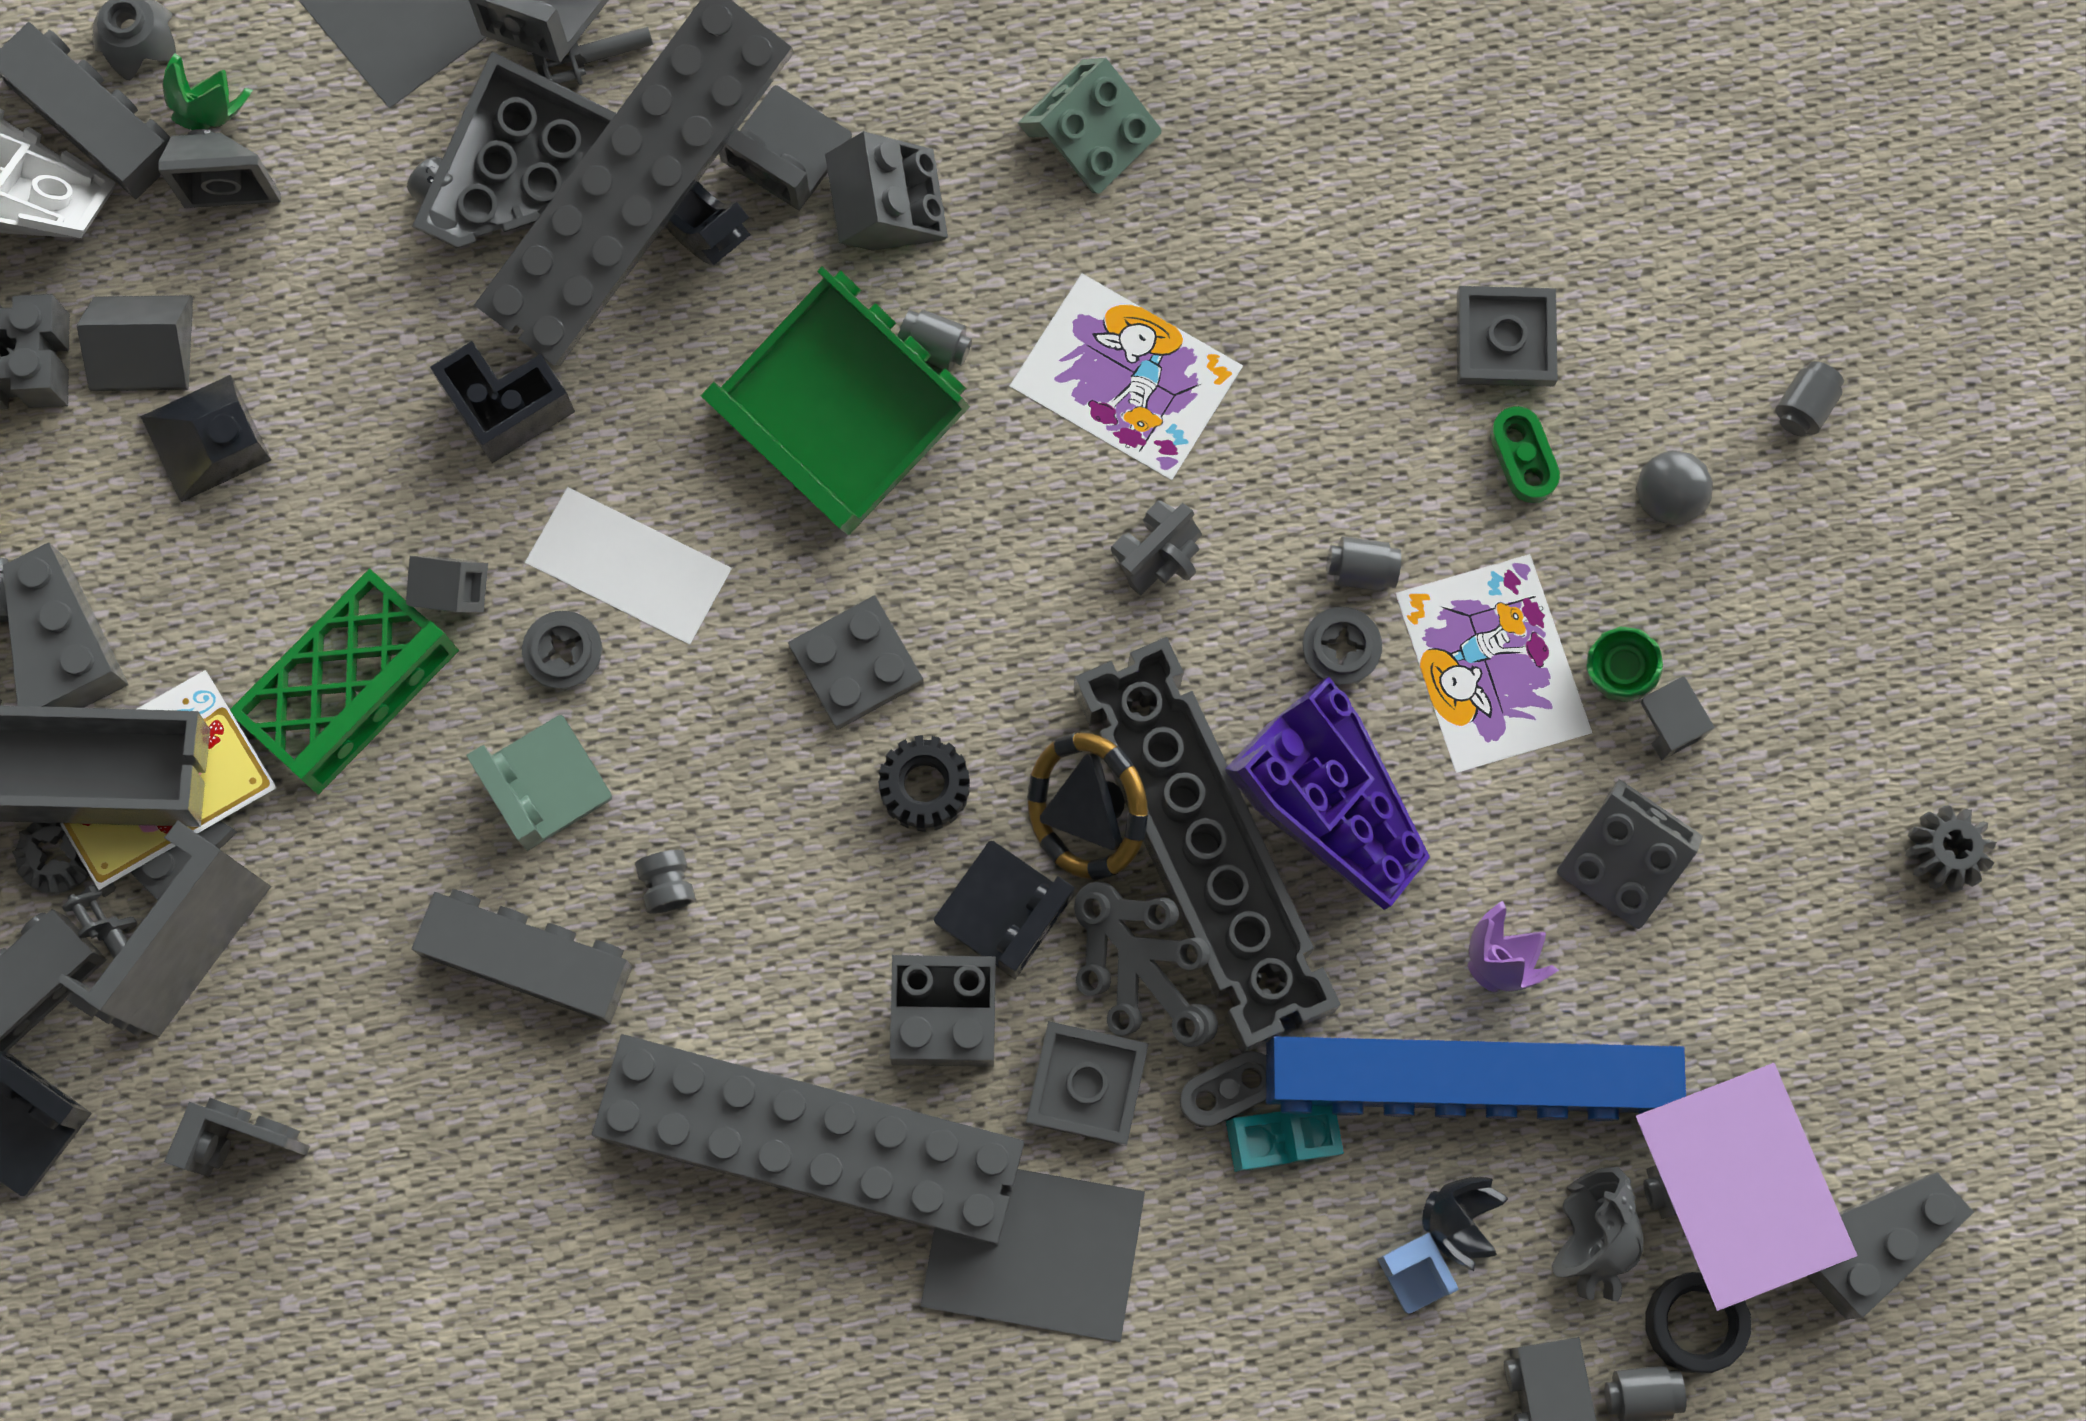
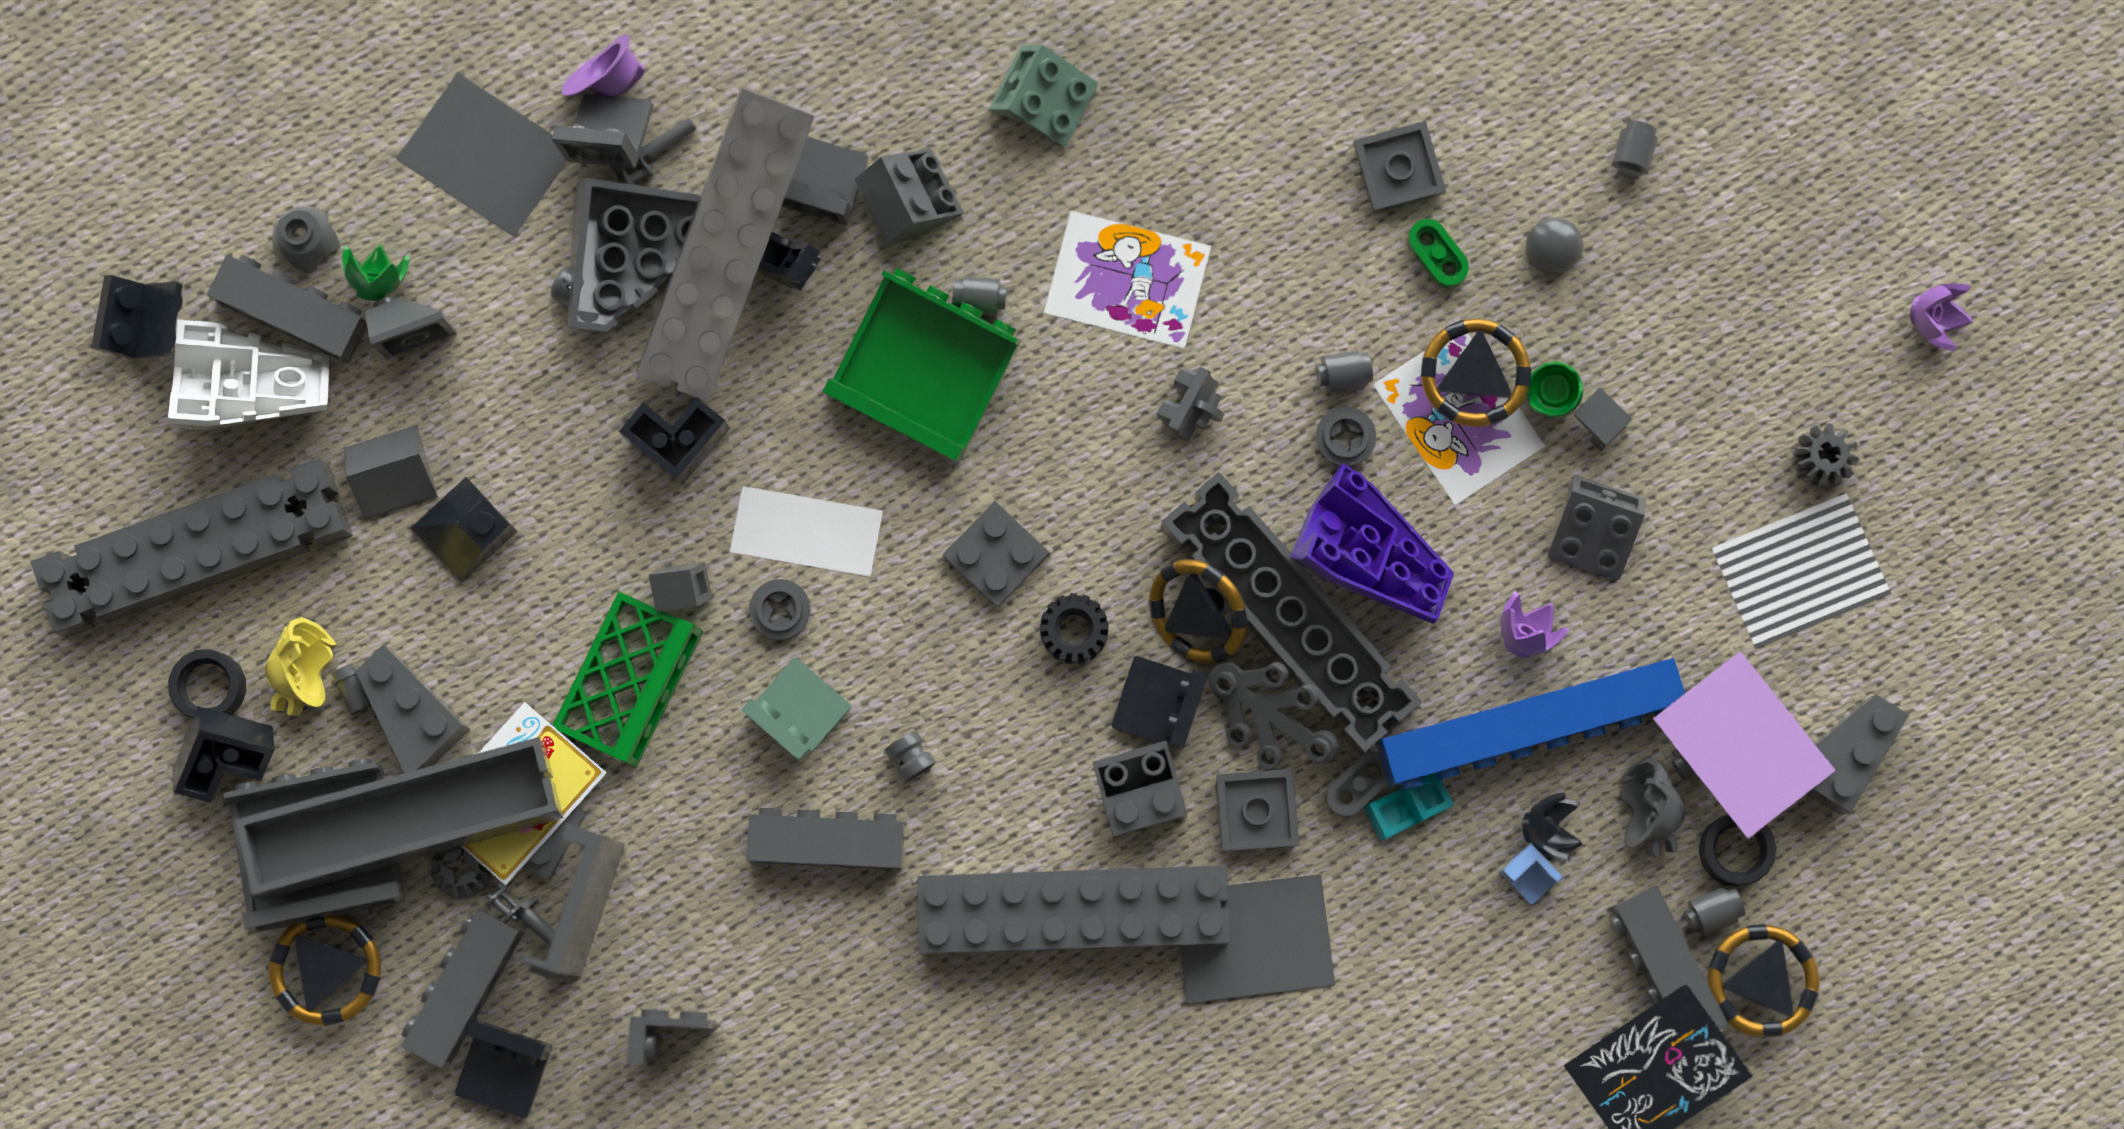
camera: 10 degrees left, 5 degrees up
(1530, 612) = (1476, 372): none -> piece
(1878, 987) = (1801, 570): none -> sticker

